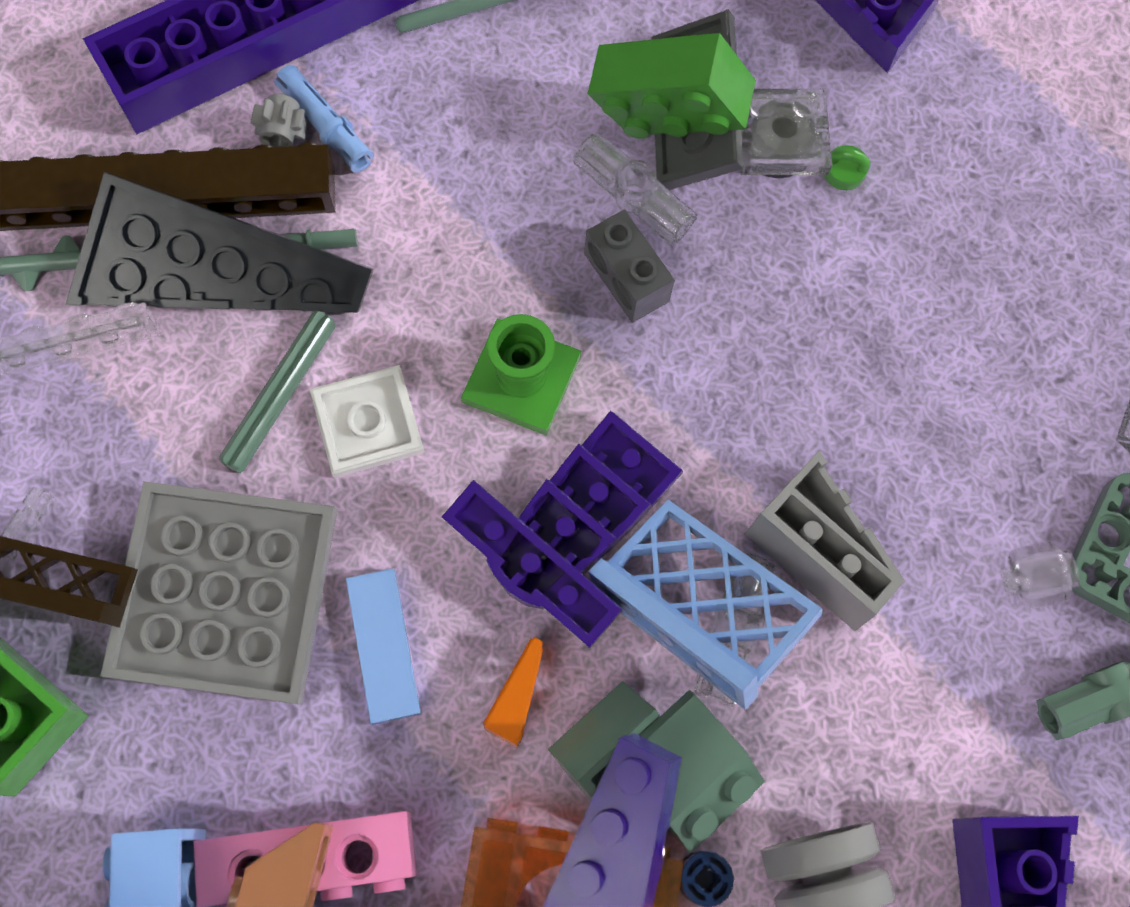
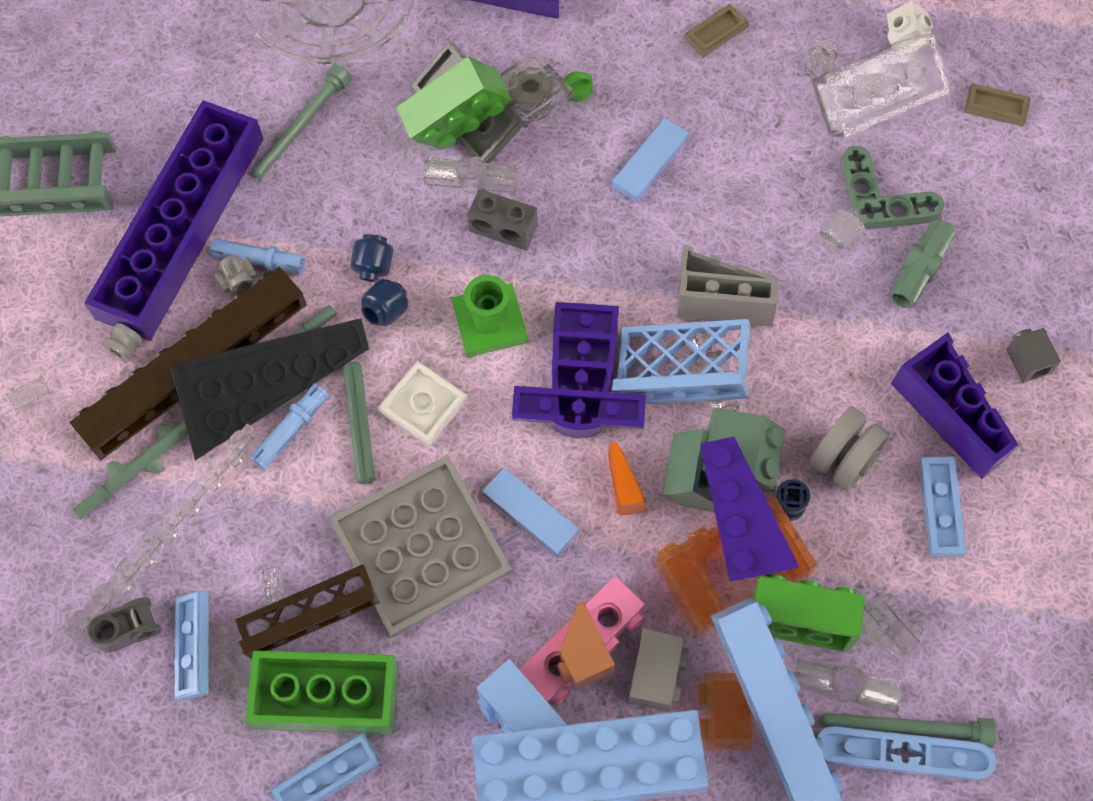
camera: 30 degrees left, 5 degrees down
(101, 114) = (122, 342): none -> light grey wheel
(208, 337) = (293, 422): none -> light blue pin
(415, 270) = (384, 302): none -> dark blue head
(444, 207) = (371, 257): none -> dark blue head
(865, 315) = (650, 160): none -> light blue tile
(1071, 212) = (716, 30): none -> dark tan tile

